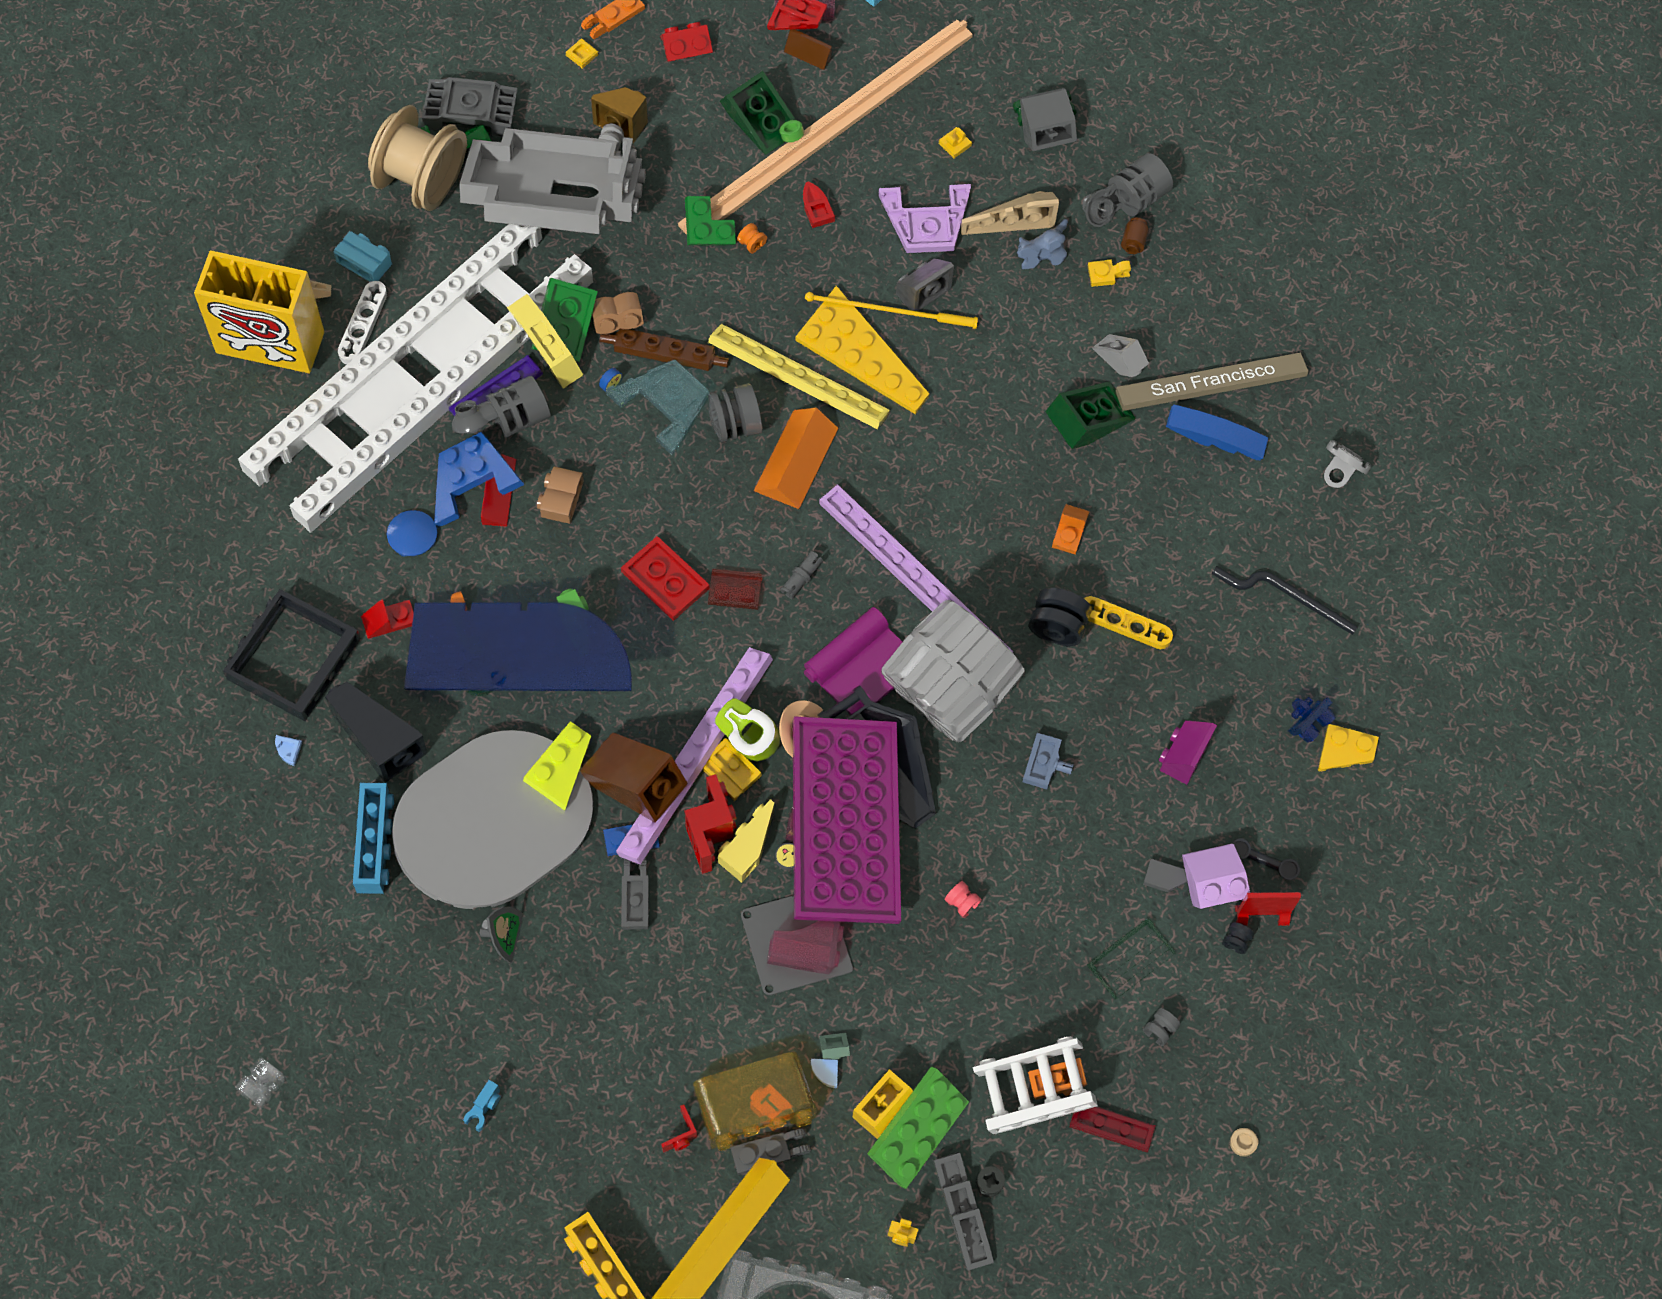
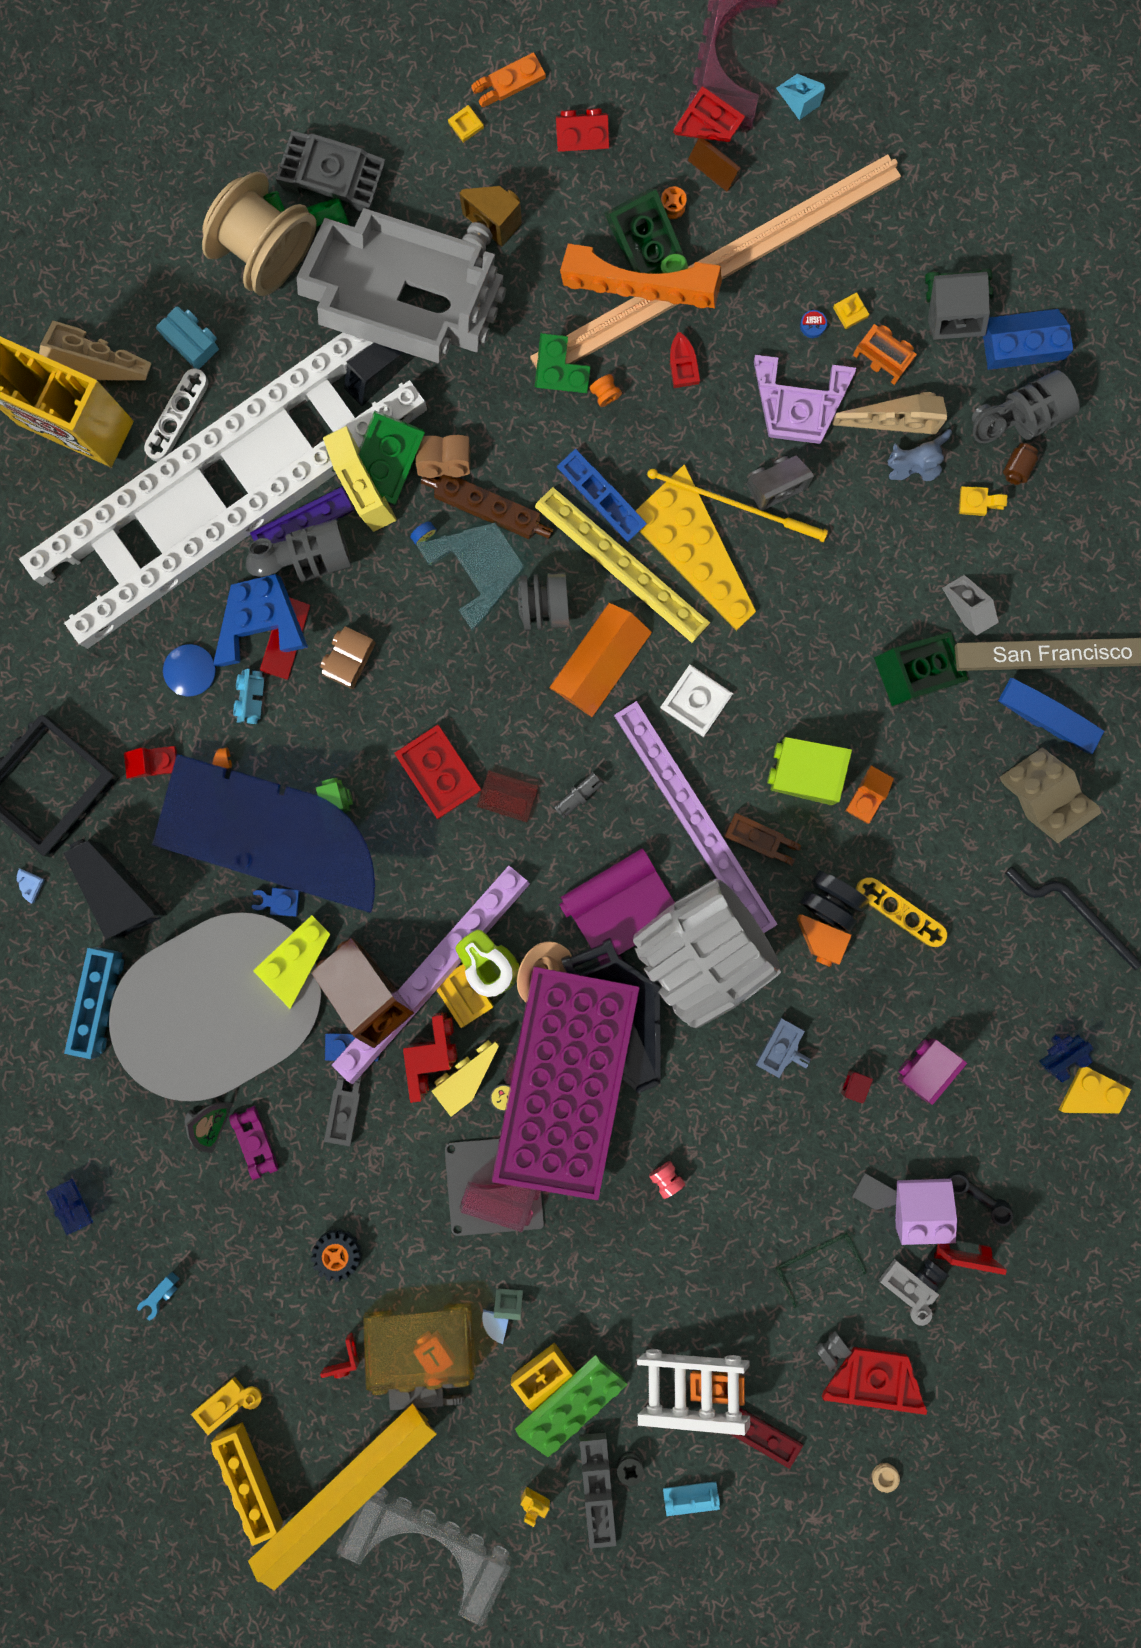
camera: 20 degrees right, 20 degrees up
(379, 1035) = (69, 1207): none -> clear blue hips
(473, 534) = (249, 686): none -> medium azure hinge
(538, 719) = (282, 901): none -> blue plate
(539, 252) = (372, 370): none -> black slope
(551, 944) = (254, 1142): none -> magenta plate
(569, 1200) = (226, 1403): none -> yellow hinge
(657, 1024) = (330, 1263): none -> black wheel
(767, 322) = (601, 495): none -> blue slope
(782, 78) = (676, 197): none -> orange wheel
(811, 139) = (690, 286): none -> orange arch
(892, 477) = (696, 700): none -> white tile
(924, 158) = (813, 324): none -> tile
(980, 582) = (759, 838): none -> reddish brown hinge
(994, 167) = (886, 351): none -> orange window
(1010, 513) = (809, 770): none -> lime slope
(1058, 656) = (824, 940): none -> orange slope
(1058, 1201) = (691, 1498): none -> medium azure hinge
(1114, 140) = (1027, 339): none -> blue slope
(1122, 779) = (856, 1086): none -> dark red slope
(1211, 1049) = (876, 1381): none -> red wing
(1222, 958) = (910, 1290): none -> light grey hinge
(1232, 494) = (1050, 795): none -> dark tan bracket

